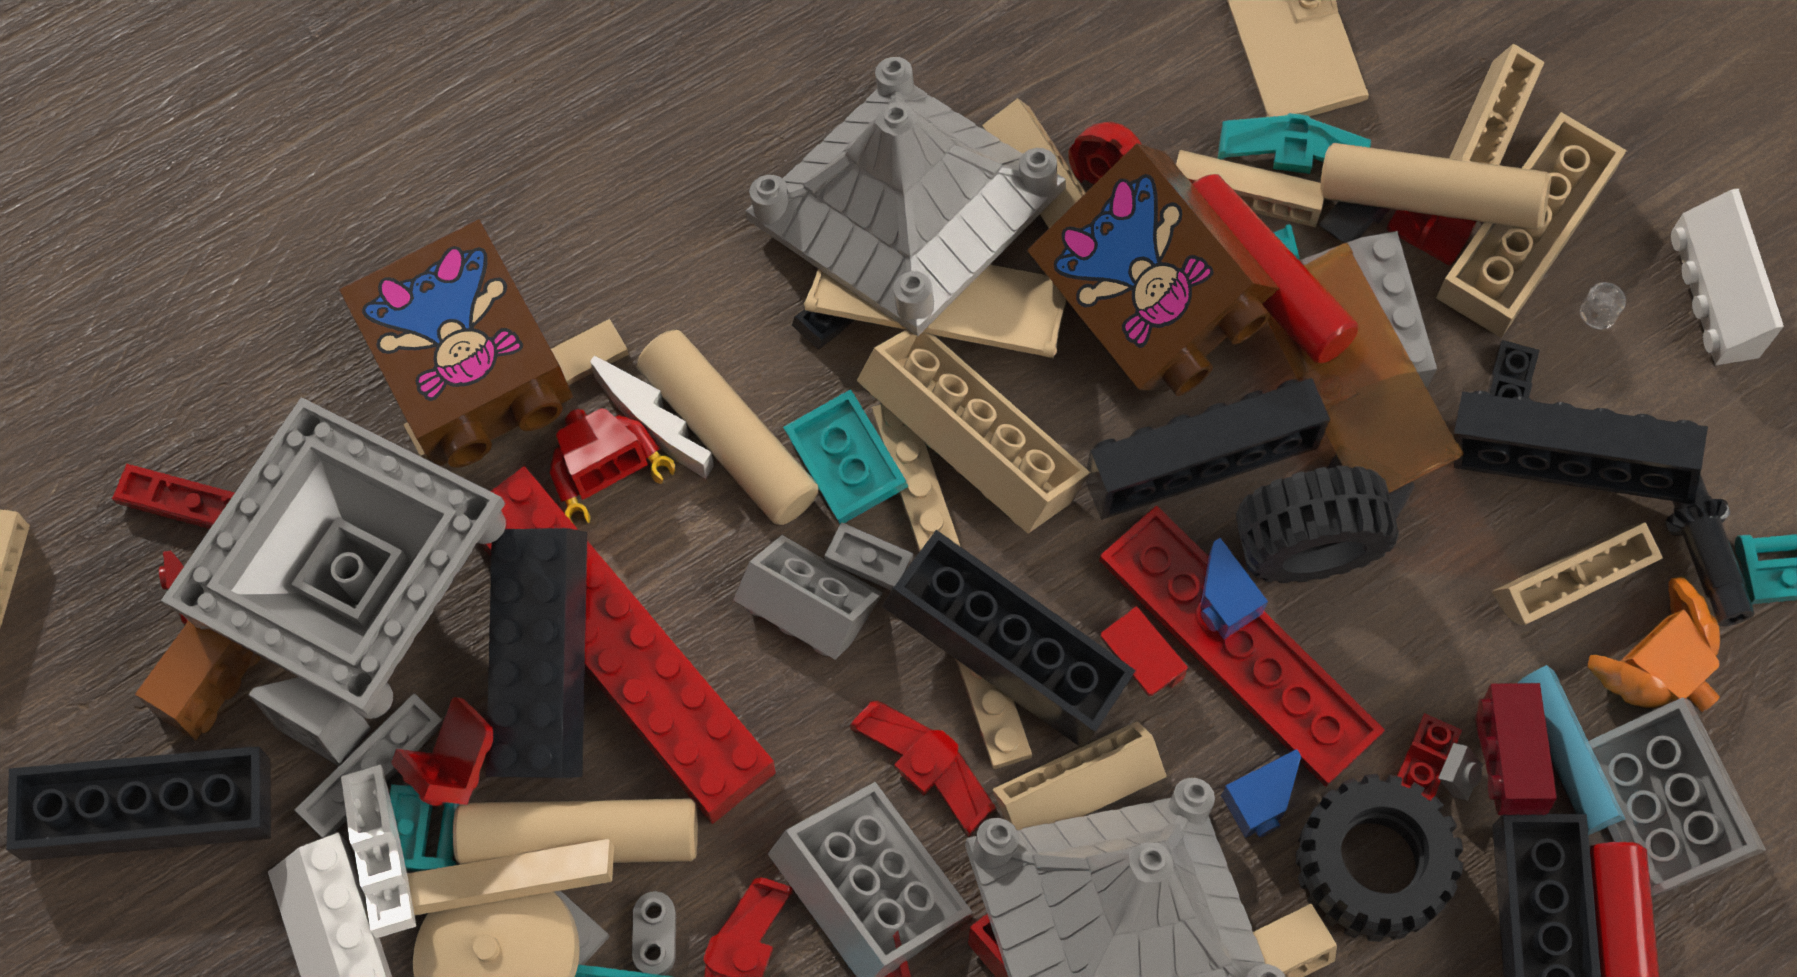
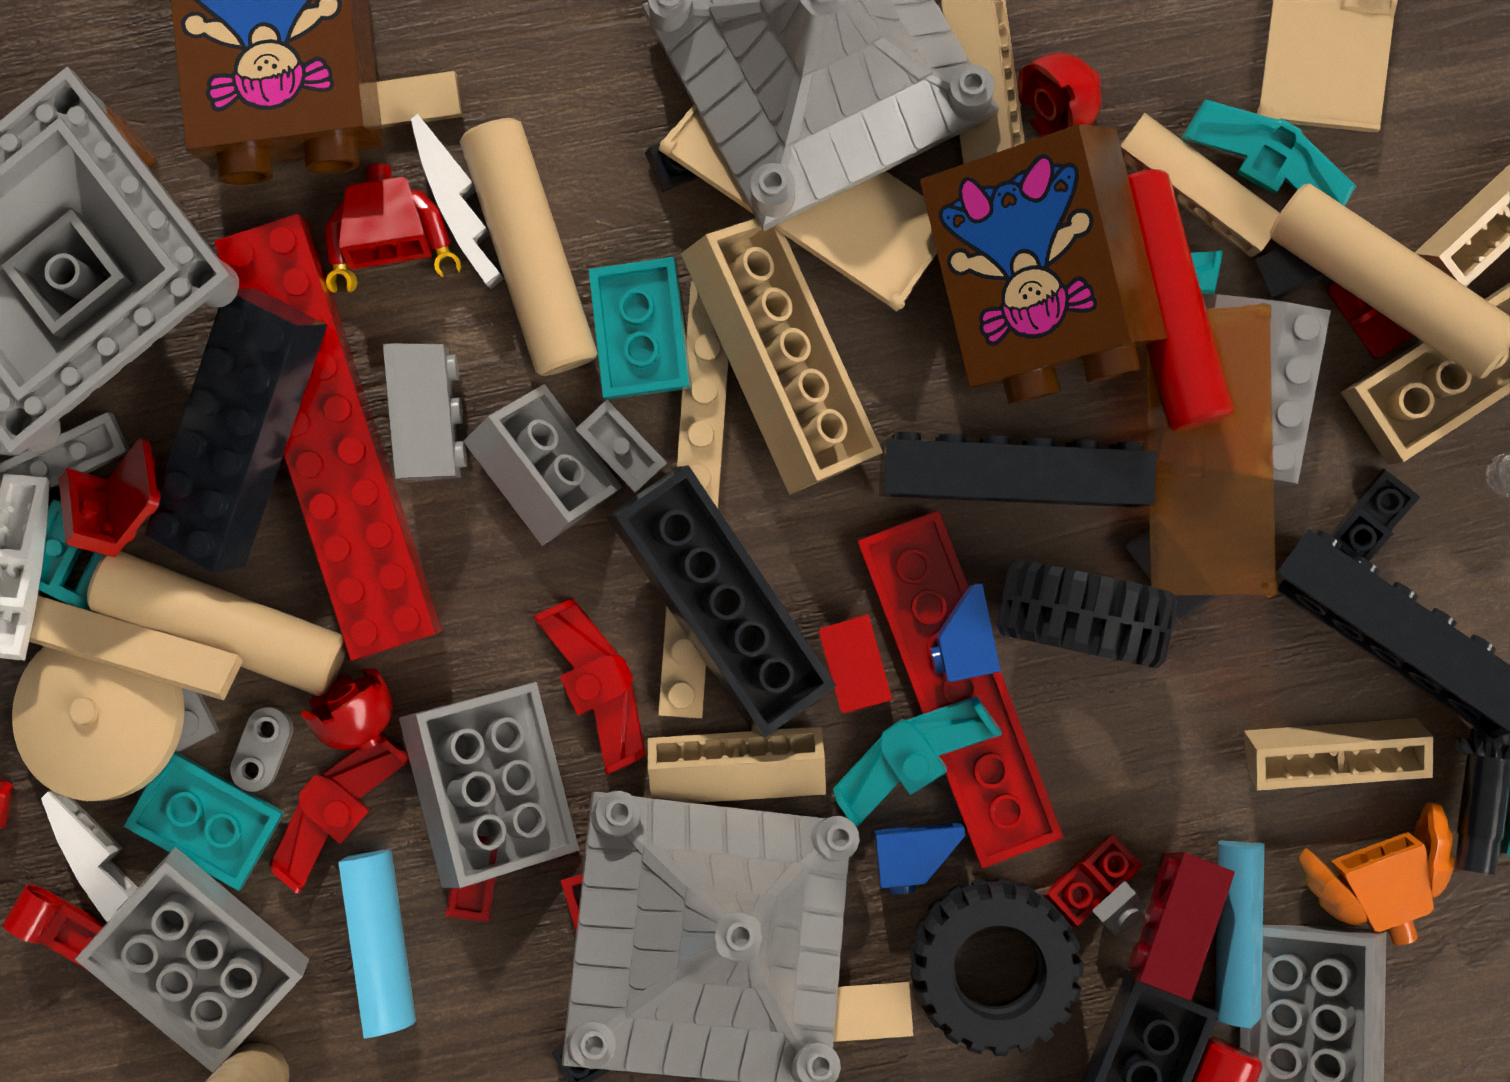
camera: 20 degrees right, 20 degrees up
(691, 588) = (424, 411): none -> light grey slope
(725, 863) = (351, 712): none -> red cylinder
(1225, 709) = (911, 754): none -> teal plate

